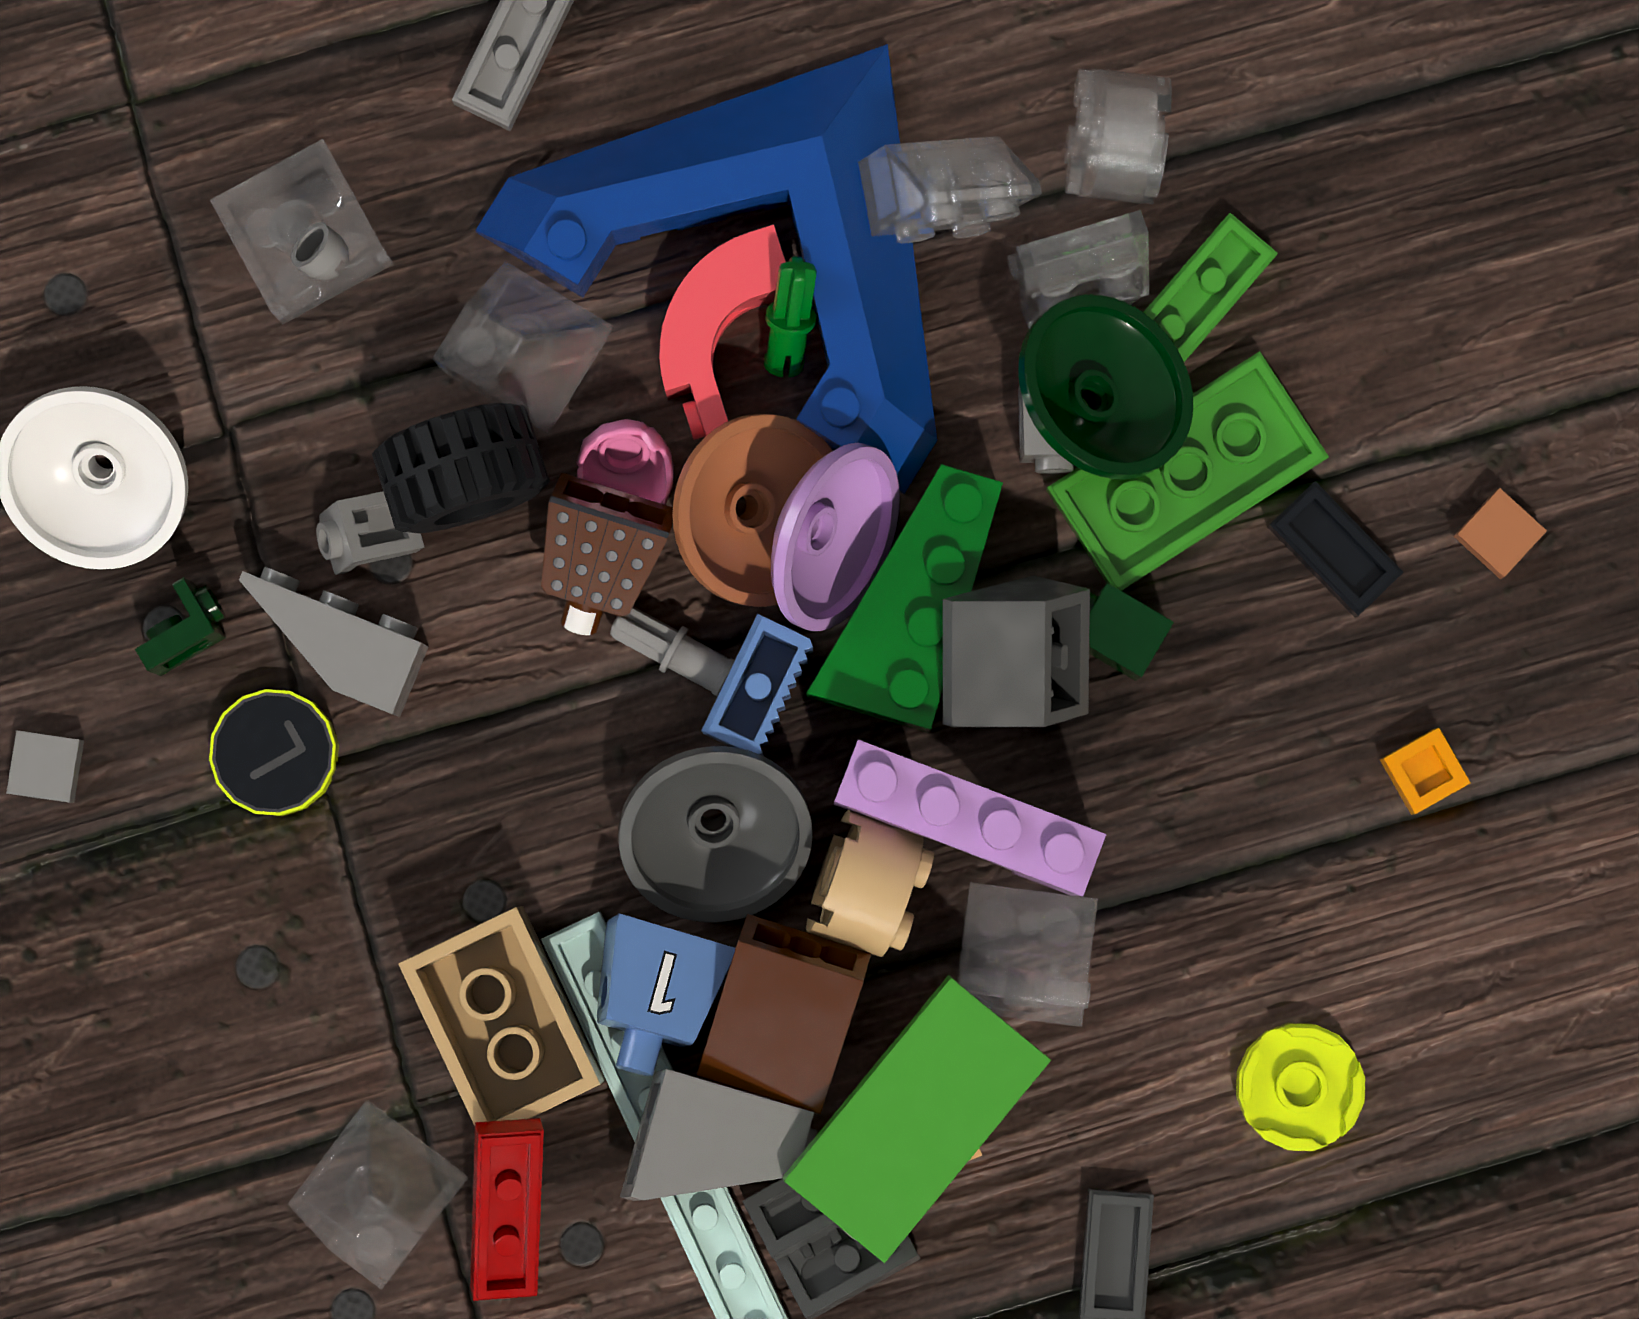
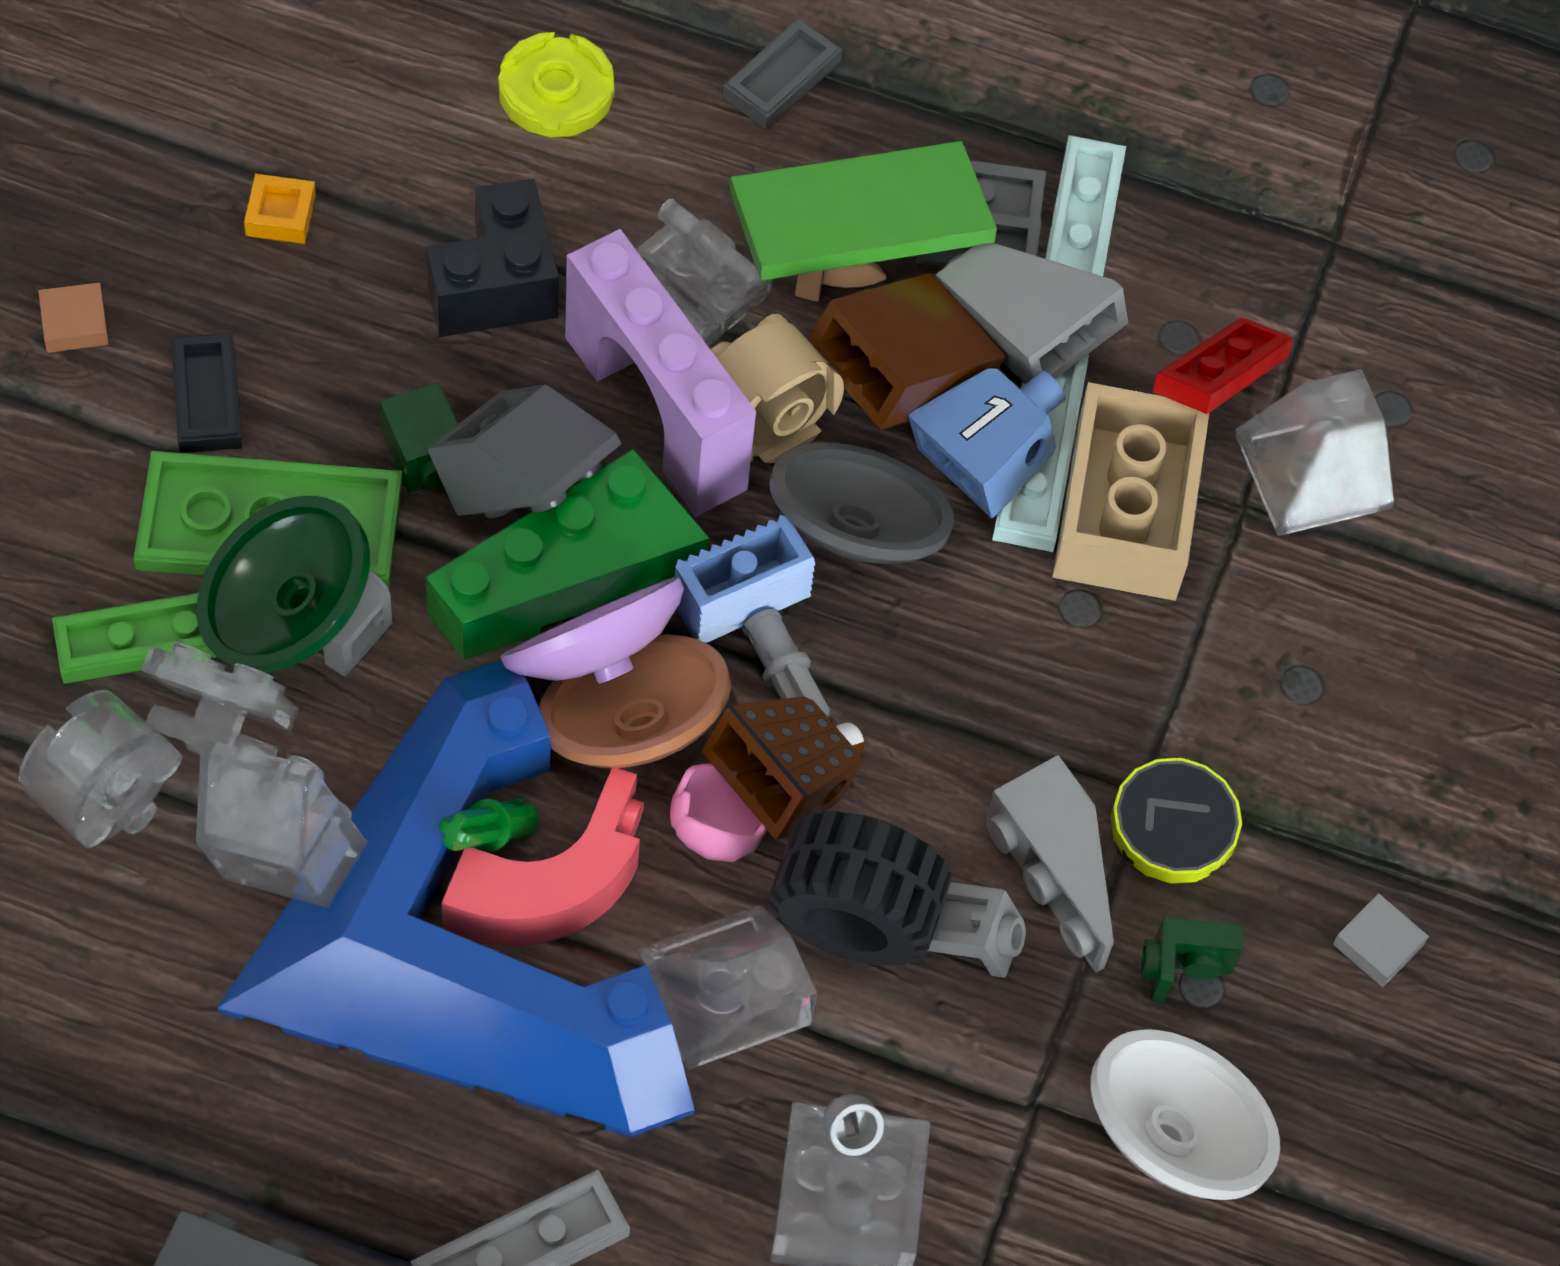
camera: 150 degrees left, 25 degrees down
(1177, 850) = (503, 273): none -> black brick

